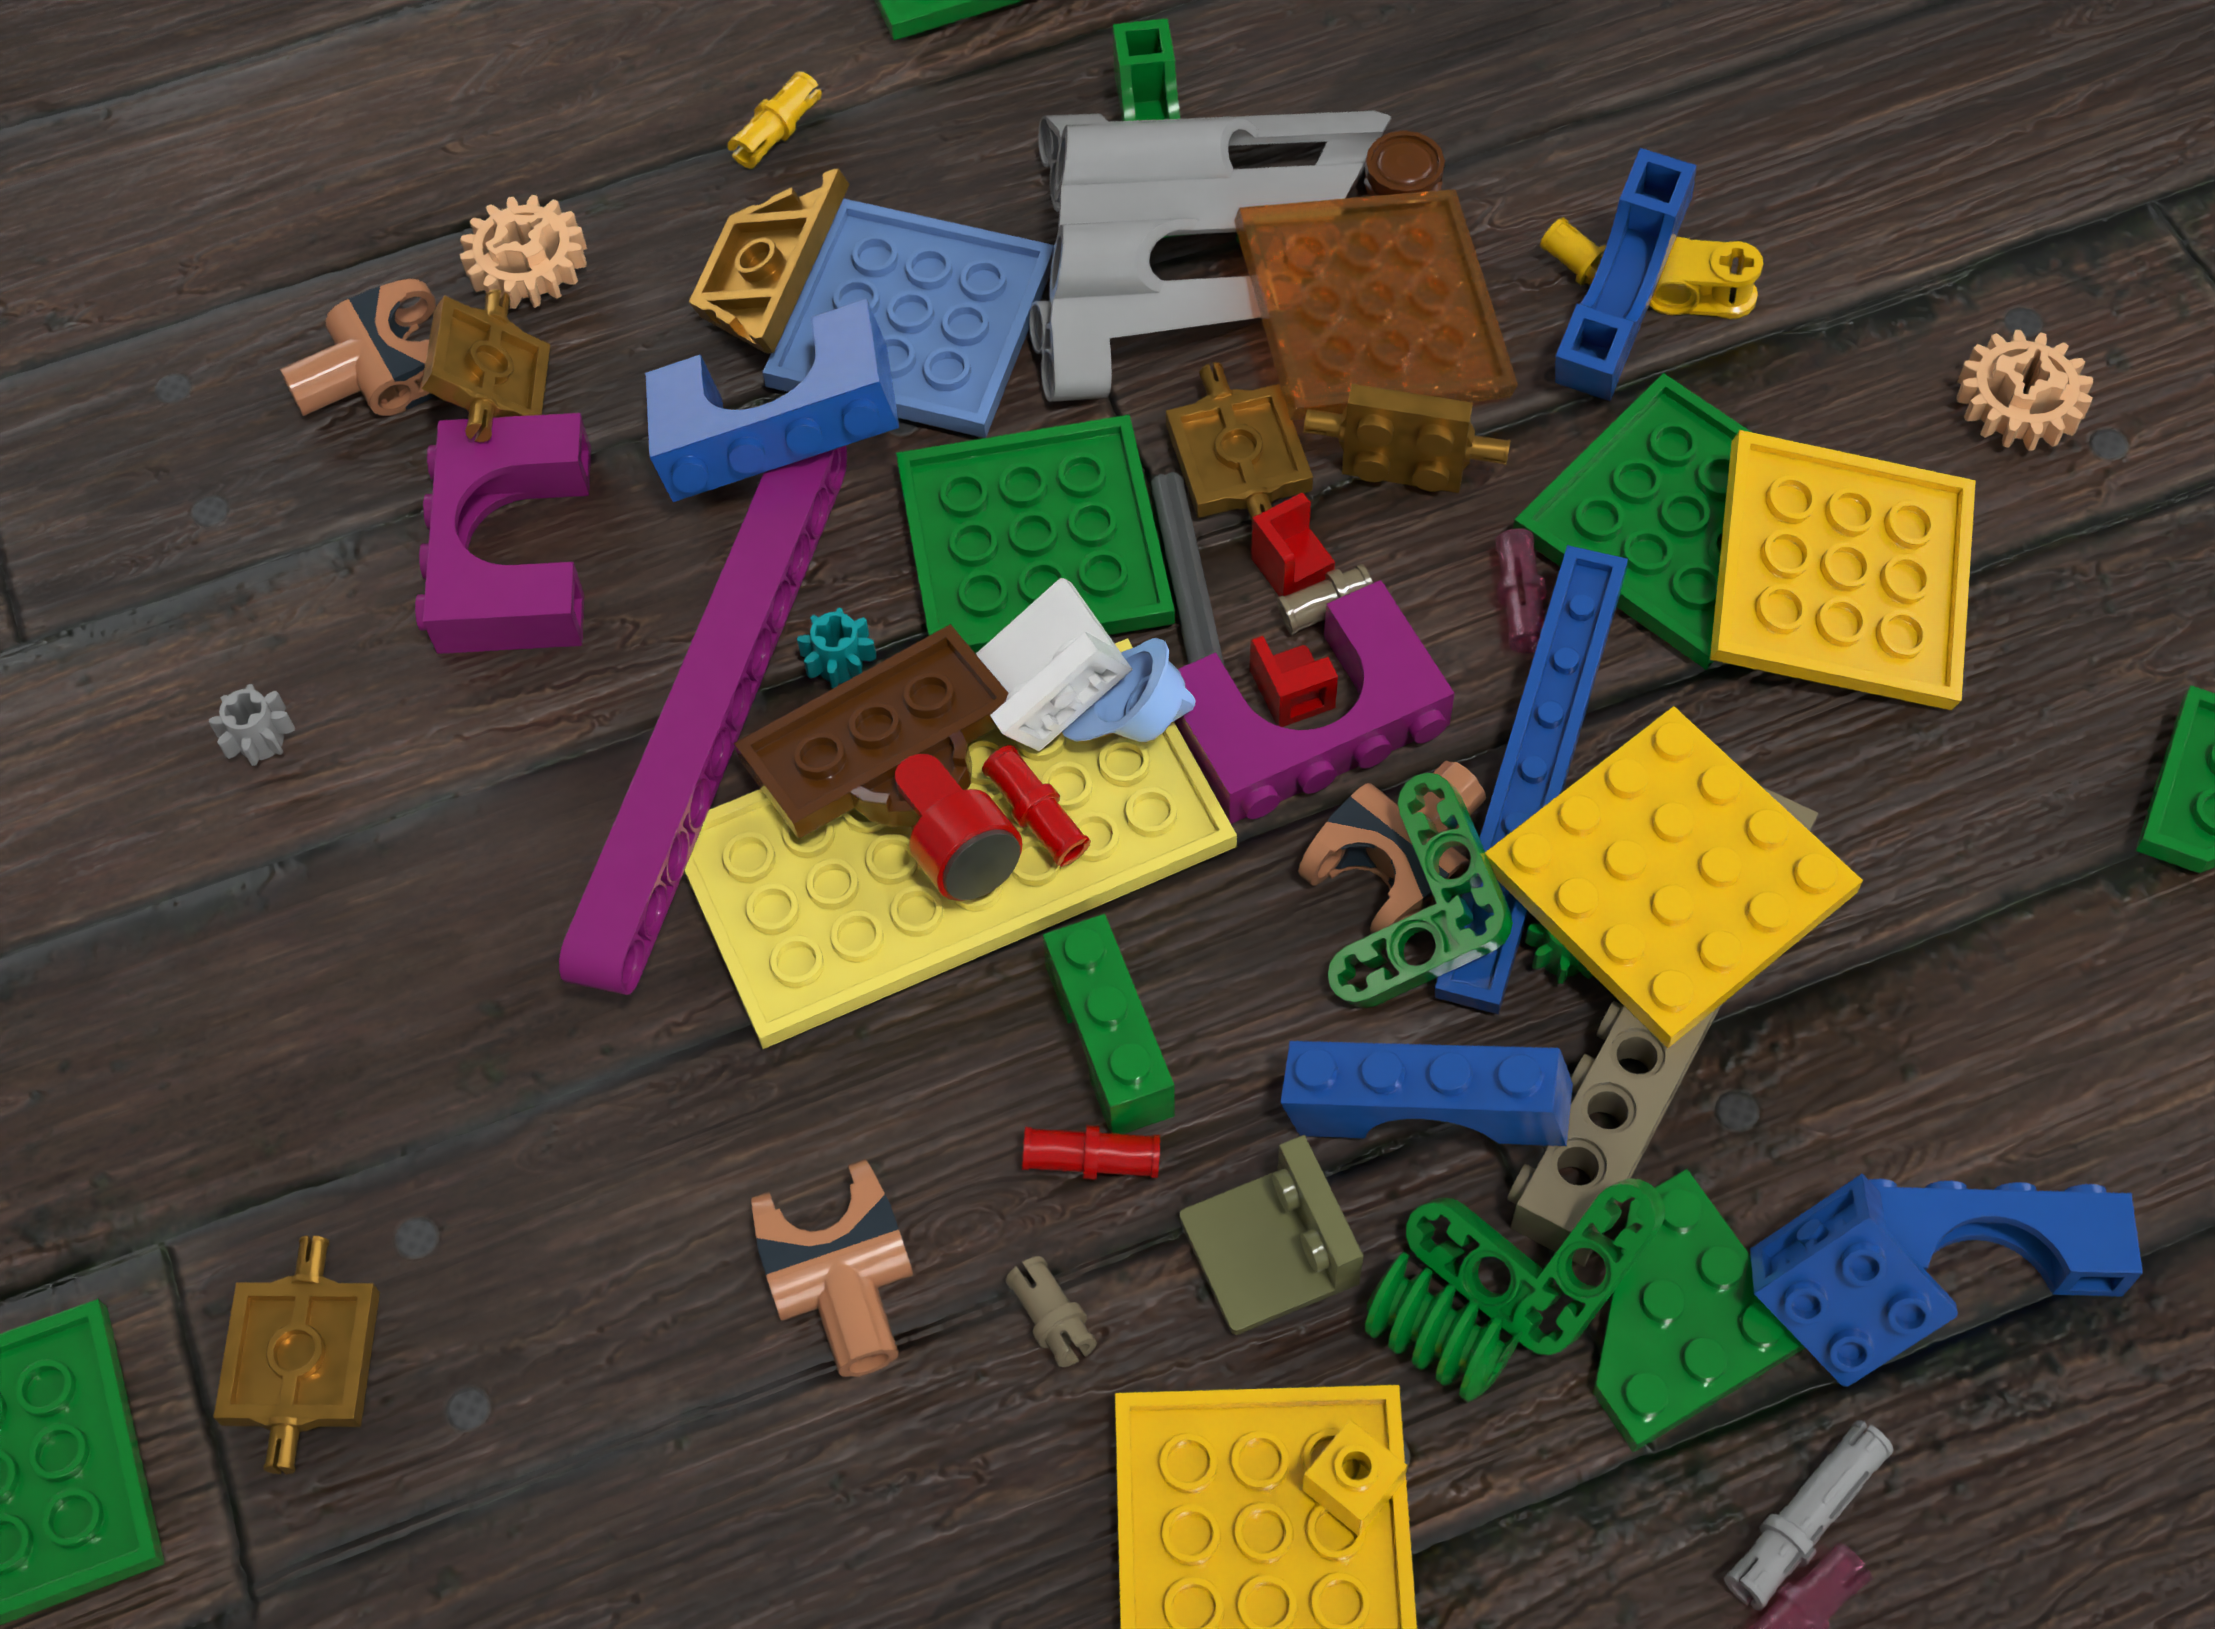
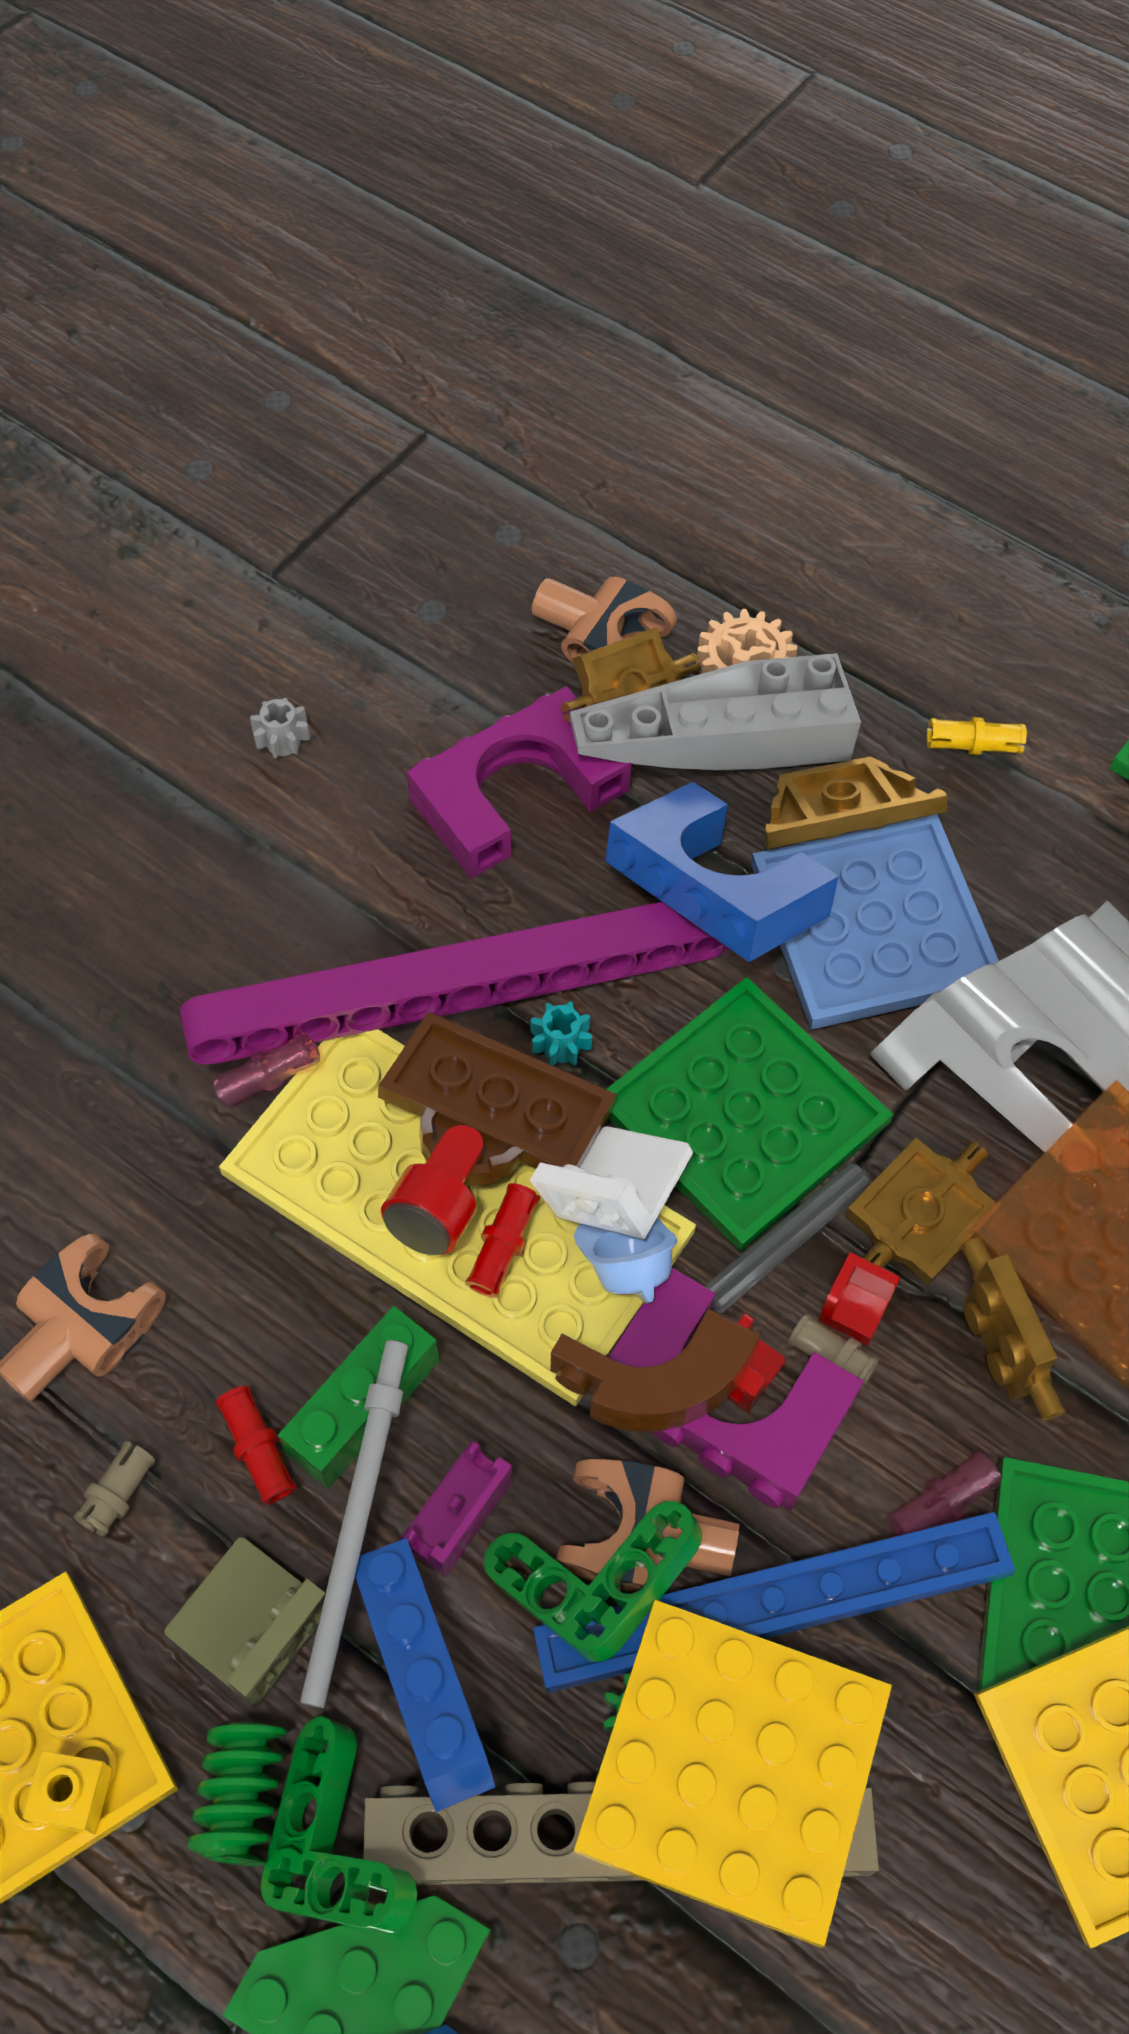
camera: 55 degrees right, 0 degrees up
(597, 299) = (729, 718): none -> light grey wedge
(681, 936) = (267, 1069): none -> clear pink pin
(1148, 986) = (382, 1403): none -> light grey bar
(1273, 993) = (458, 1509): none -> magenta hinge
(1275, 774) = (660, 1394): none -> reddish brown arch

